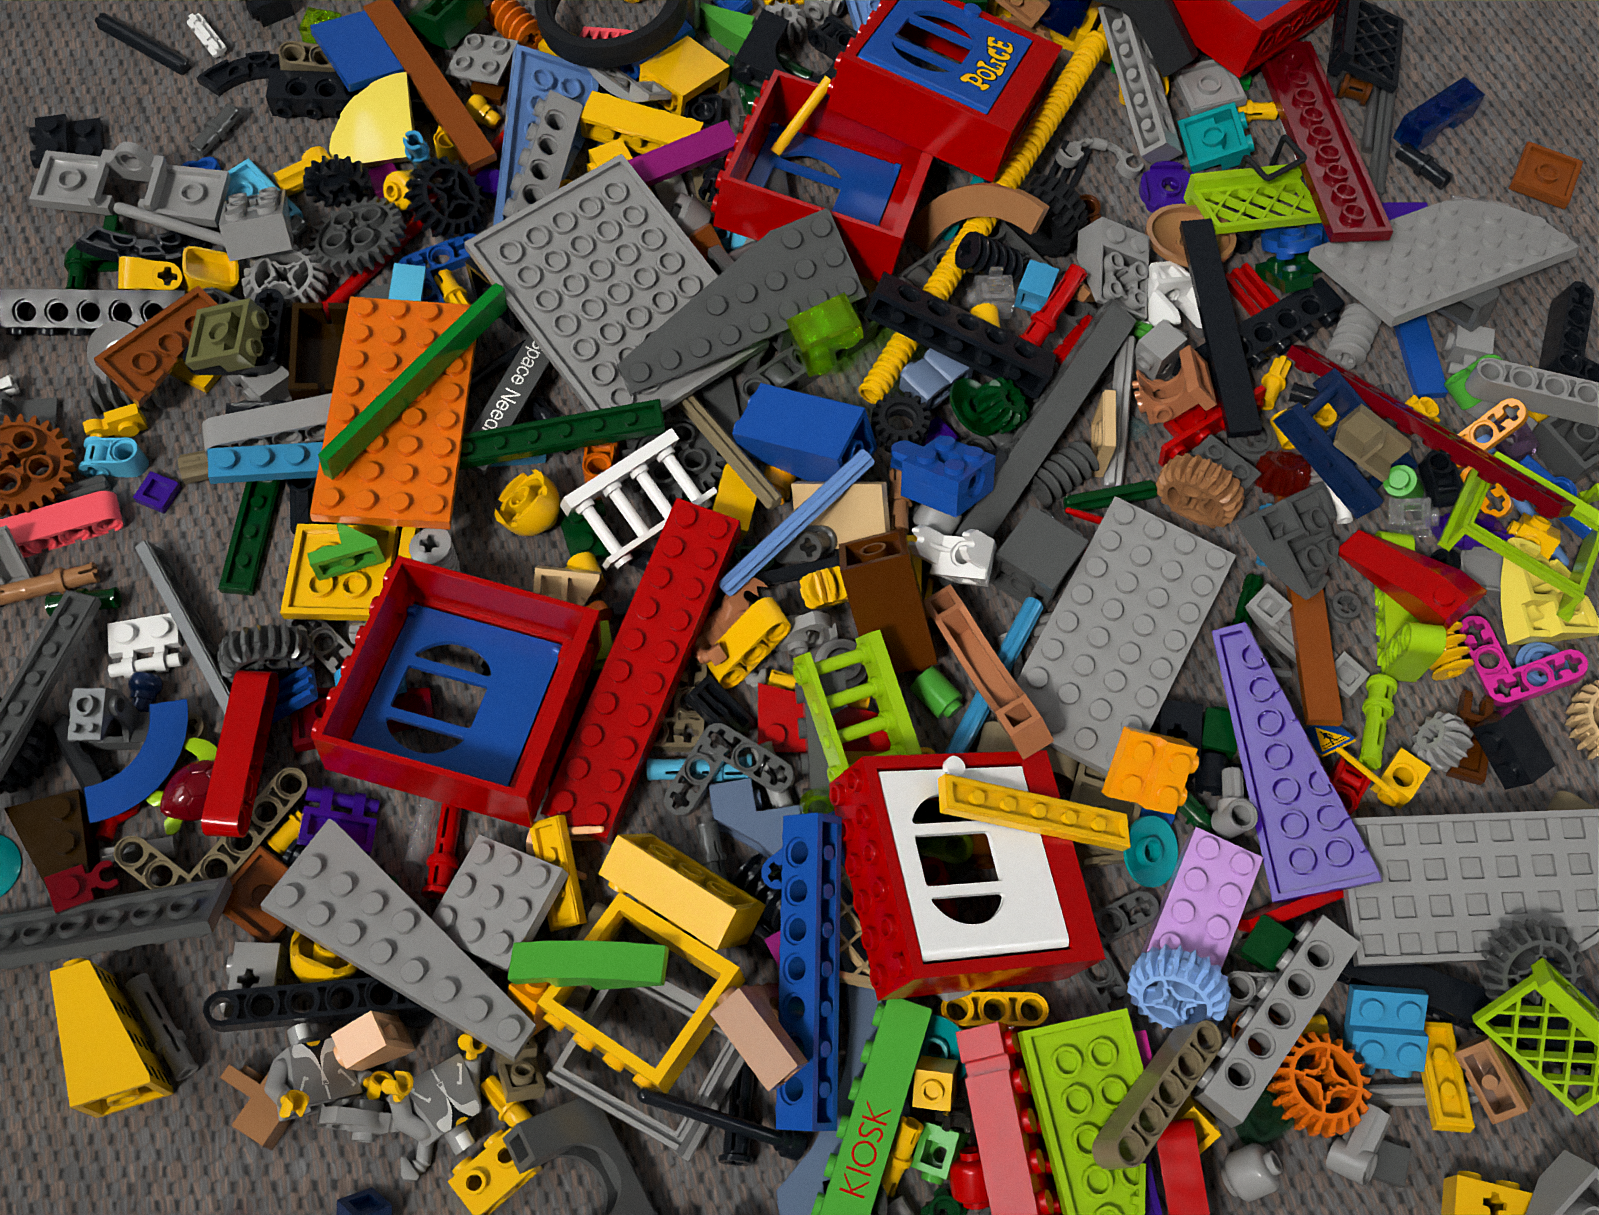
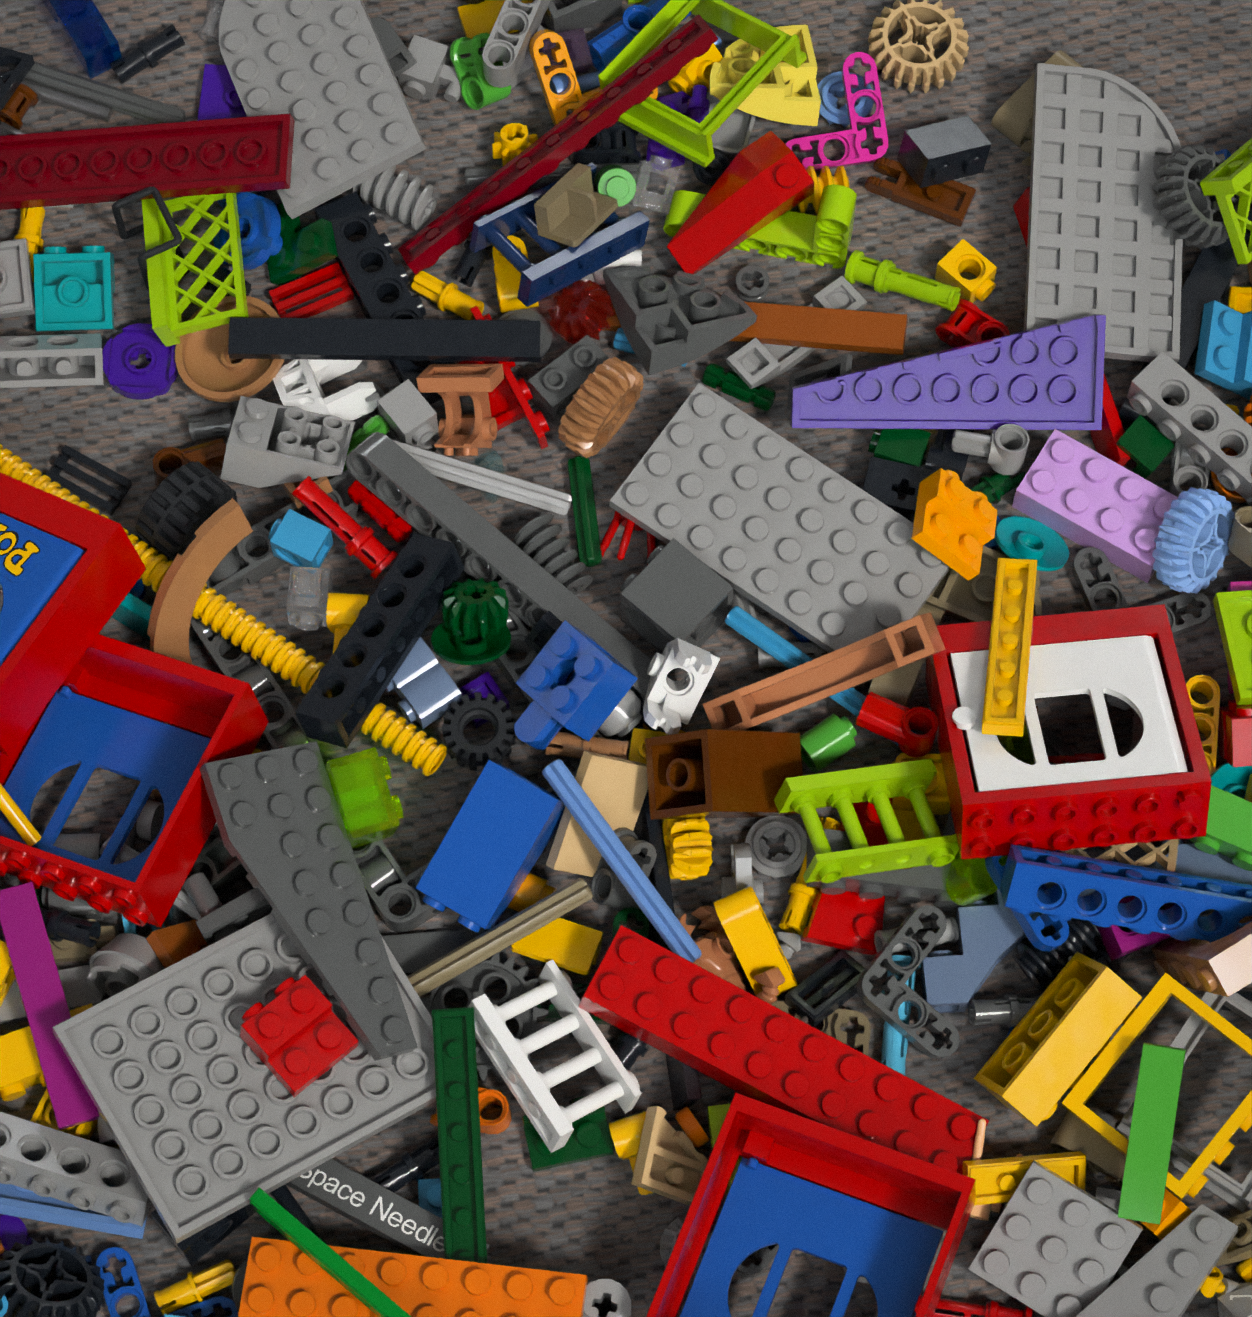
camera: 80 degrees left, 5 degrees up
(529, 504) = (536, 1197): yellow cylinder -> none
(631, 308) = (297, 1034): none -> red plate
(960, 730) = (896, 723): none -> red piece
(979, 253) = (262, 590): black piece -> none
(1074, 150) = (60, 431): light grey piece -> none
(1104, 431) = (509, 499): tan tile -> none
(1333, 738) = (919, 337): piece -> none
(1421, 358) = (449, 124): blue tile -> none
(1442, 741) = (930, 220): light grey gear -> none

